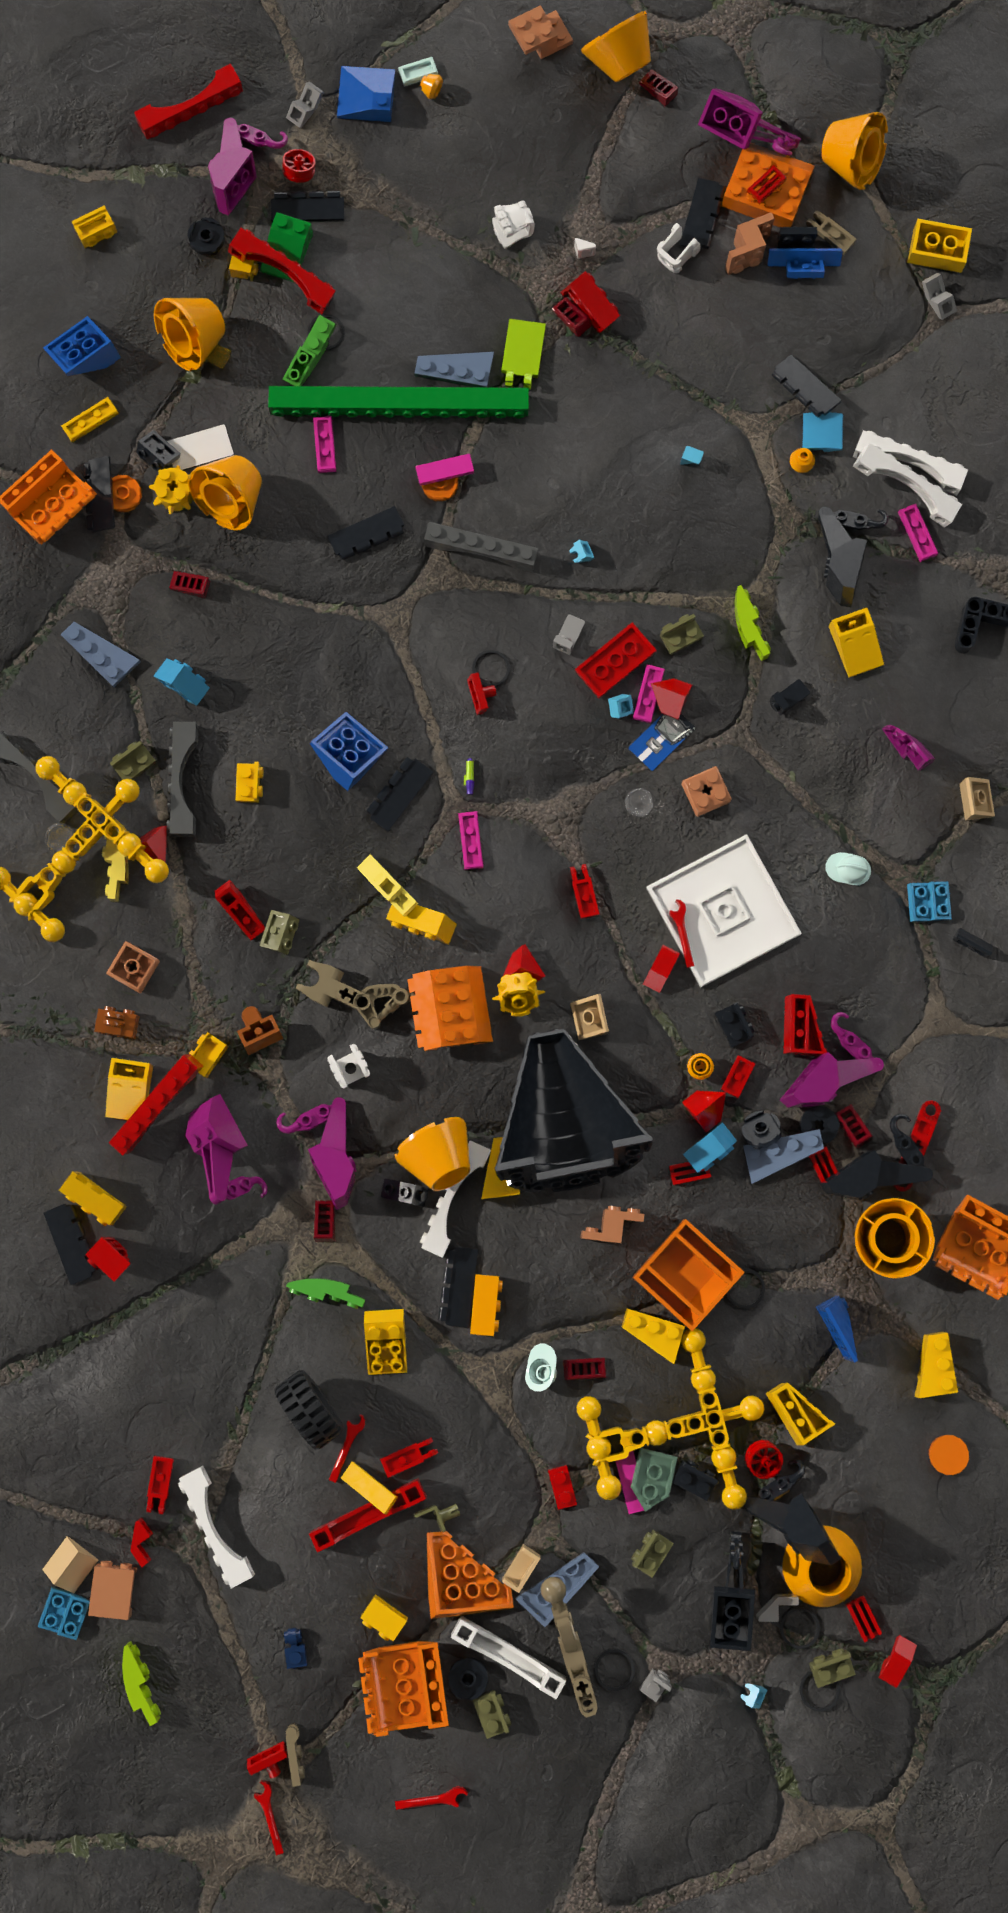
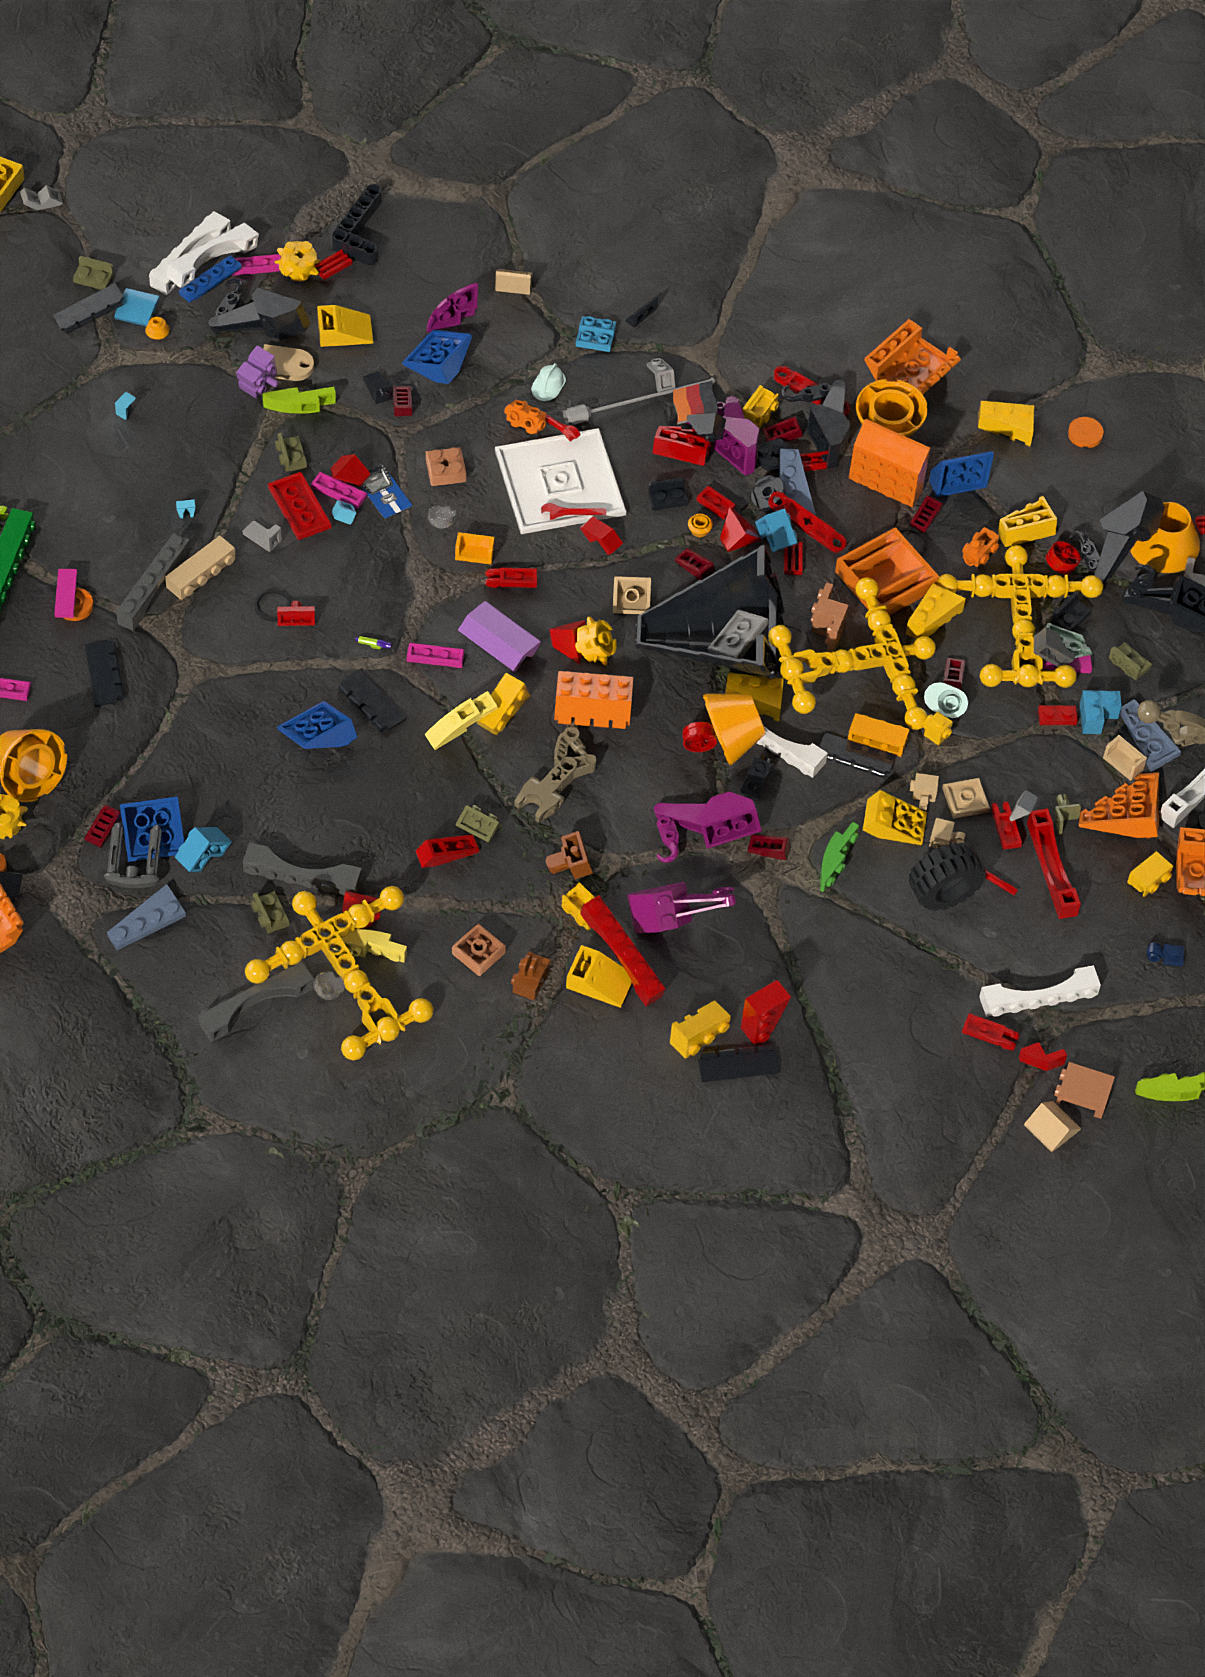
camera: 80 degrees left, 25 degrees down
(64, 1613) = (1098, 1139): dark azure slope -> none
(134, 625) = (131, 879): none -> dark grey piece
(194, 626) = (140, 818): none -> blue slope
(248, 782) = (322, 817): yellow bracket -> none
(338, 1067) = (626, 787): white piece -> none
(369, 1487) = (1028, 857): yellow tile -> none
(378, 1394) = (943, 834): none -> tan brick
(427, 1117) = (699, 737): none -> red wheel
(428, 1472) = (1023, 806): none -> light grey slope
(430, 1365) = (924, 789): none -> tan brick
(434, 1409) = (966, 798): none -> tan tile
(507, 897) = (499, 635): none -> medium lavender slope
(508, 1364) = (937, 728): none -> yellow brick
(511, 587) = (200, 567): none -> tan brick
(549, 1251) = (886, 649): none -> yellow piece
(562, 1136) = (738, 634): none -> light grey tile
(577, 1525) = (1096, 707): none -> dark azure brick
(607, 845) = (474, 548): none -> light orange panel
(632, 1467) = (1050, 647): none -> dark grey arch
(643, 1084) = (704, 571): none -> dark red slope
(738, 1164) = (816, 529): none -> red piece
(748, 1365) = (980, 547): none -> orange brick
(763, 571) = (257, 372): none -> medium lavender brick
(767, 729) = (402, 393): none -> dark red slope
(790, 891) = (569, 431): none -> red piece
(792, 854) = (525, 416): none -> orange brick
(796, 595) = (289, 362): none -> tan tile
(801, 1306) = (931, 502): none -> dark red slope
(815, 1046) = (709, 425): none -> slope
(821, 1249) = (889, 463): none -> orange slope
(849, 747) = (439, 355): none -> blue slope
(854, 377) = (93, 273): none -> olive bracket
(860, 1023) = (687, 400): none -> flag
(874, 491) = (210, 279): none -> blue bracket
(878, 1096) = (760, 406): none -> yellow hinge
(892, 982) = (663, 374): none -> light grey bracket
(939, 572) = (298, 260): none -> yellow brick
(946, 604) = (331, 262): none -> red tile

